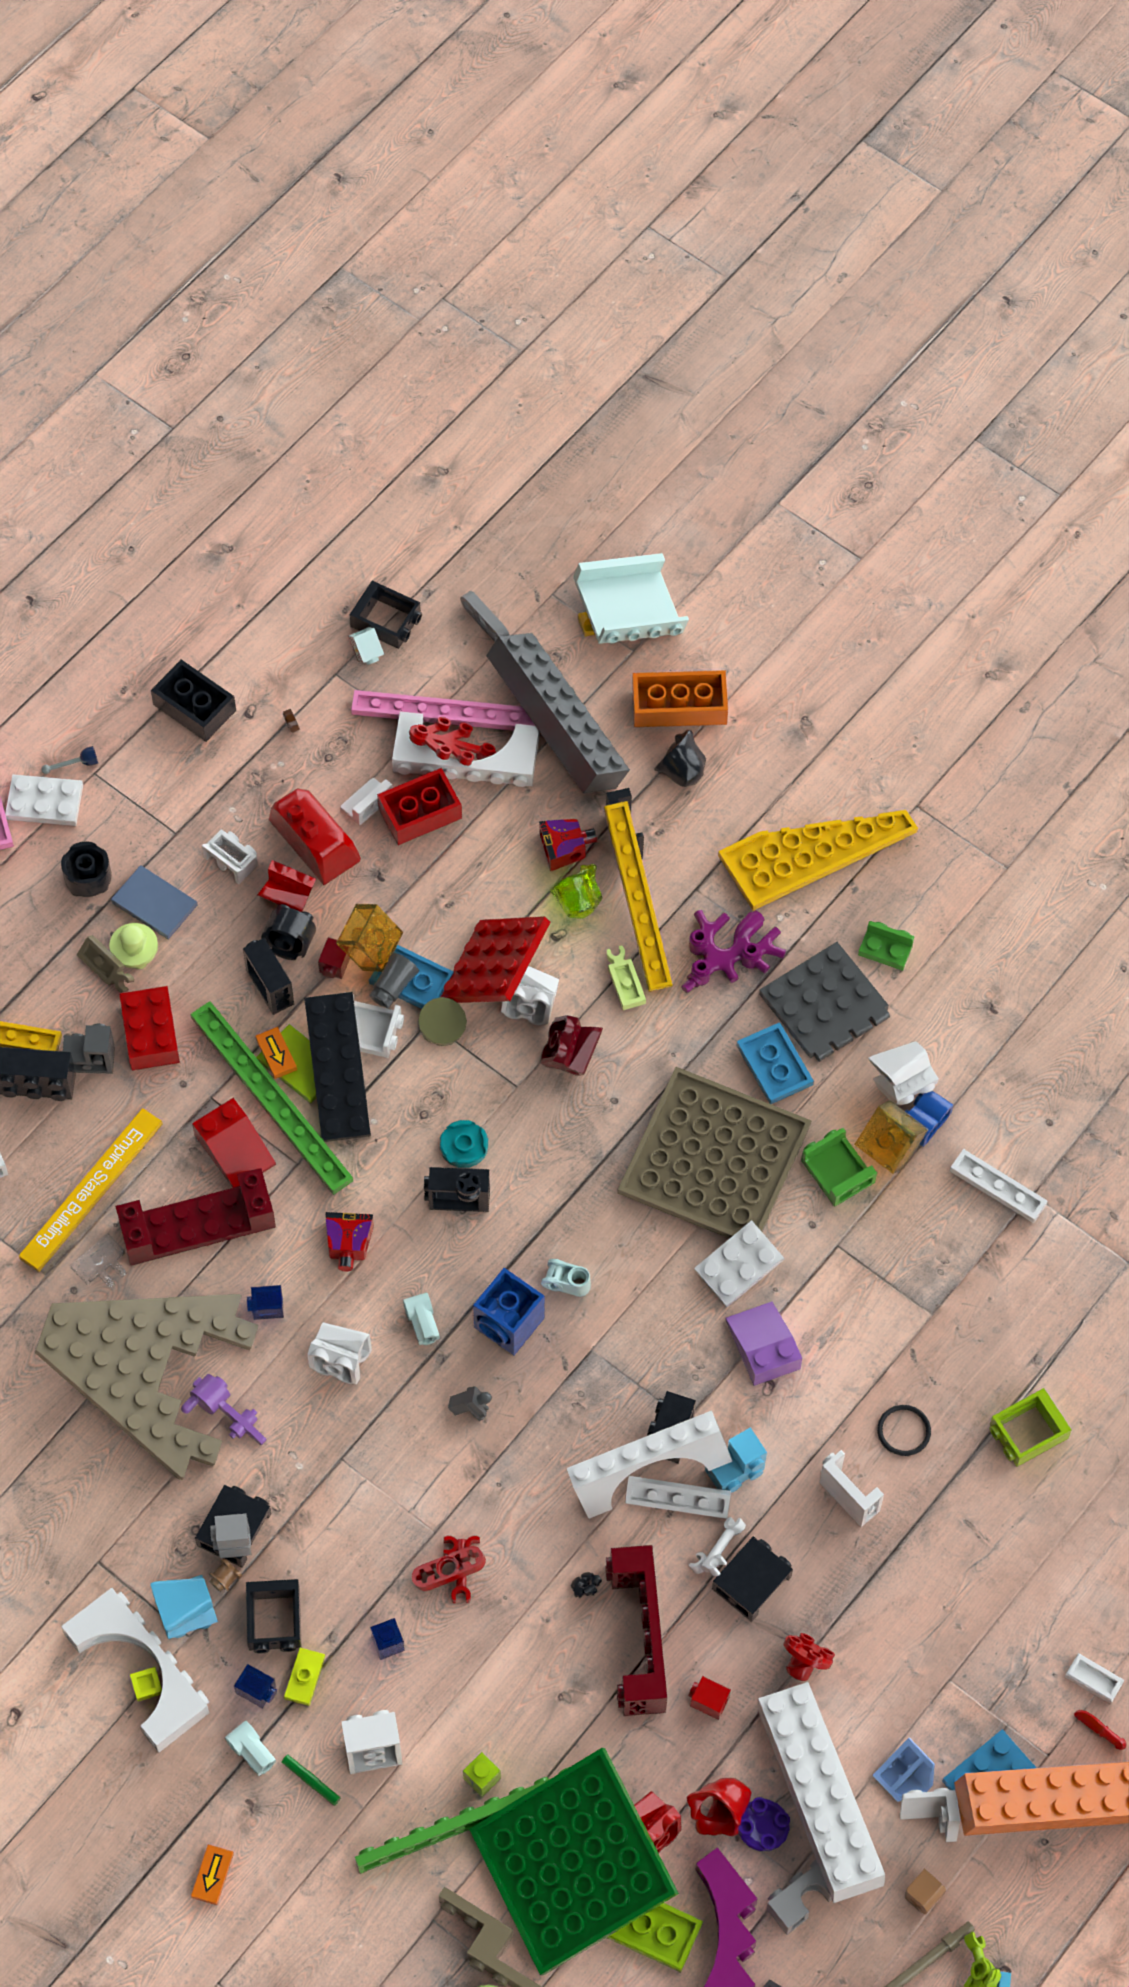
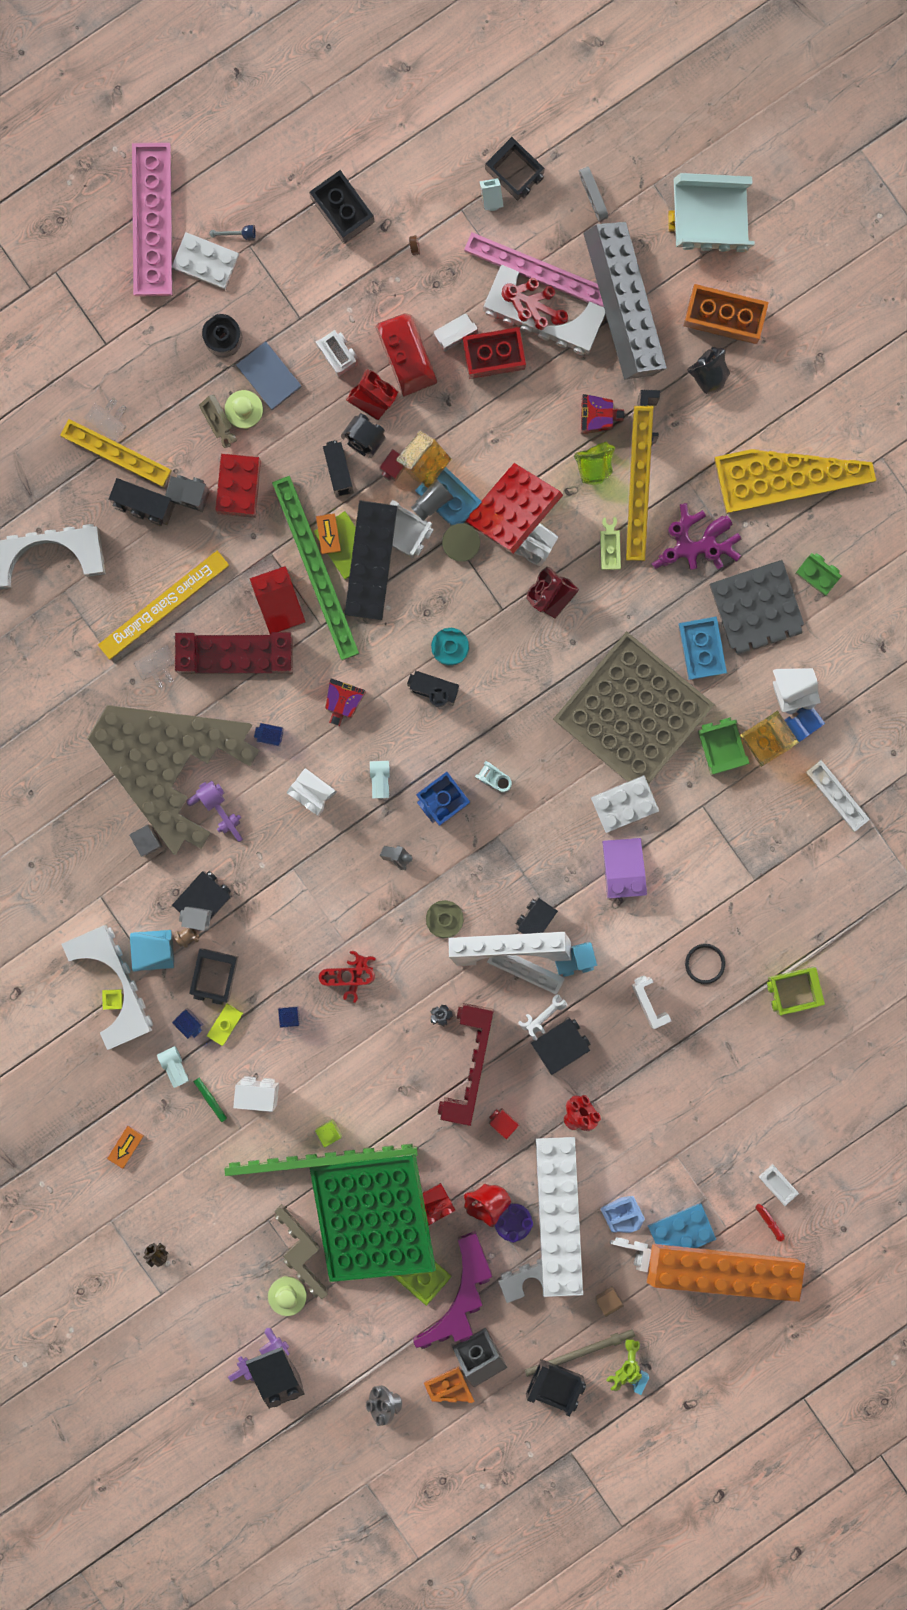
camera: 15 degrees right, 25 degrees up
(140, 1471) = (145, 840): none -> flat silver piece
(550, 1464) = (444, 919): none -> olive tile

